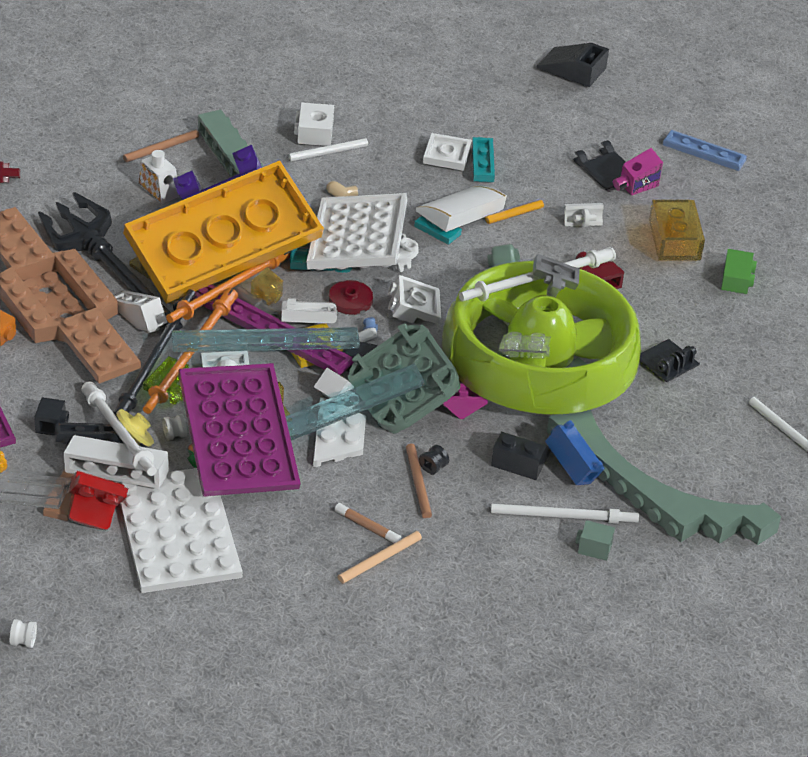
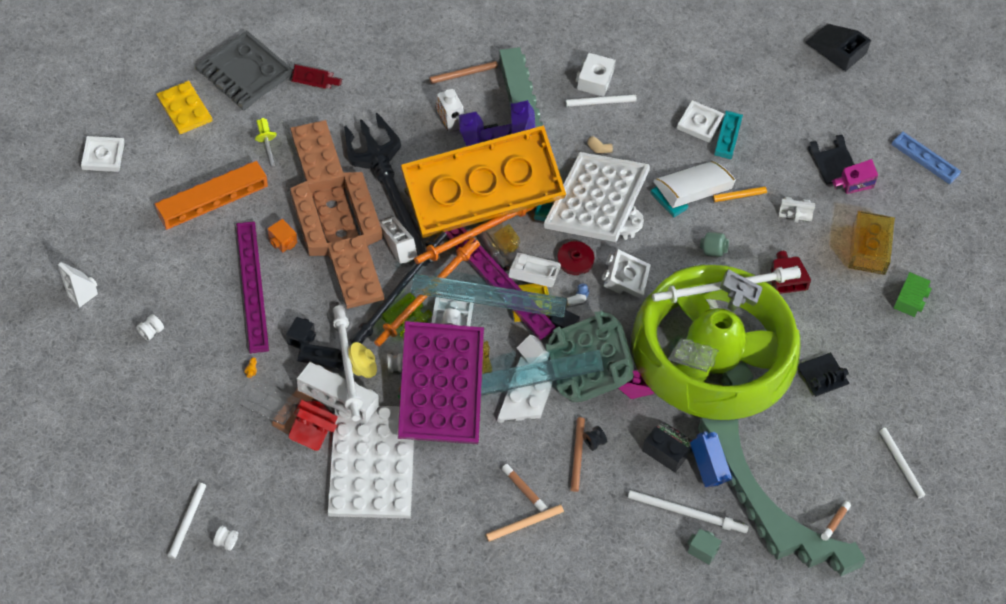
camera: 15 degrees right, 15 degrees up
(734, 488) = (835, 520): none -> bar

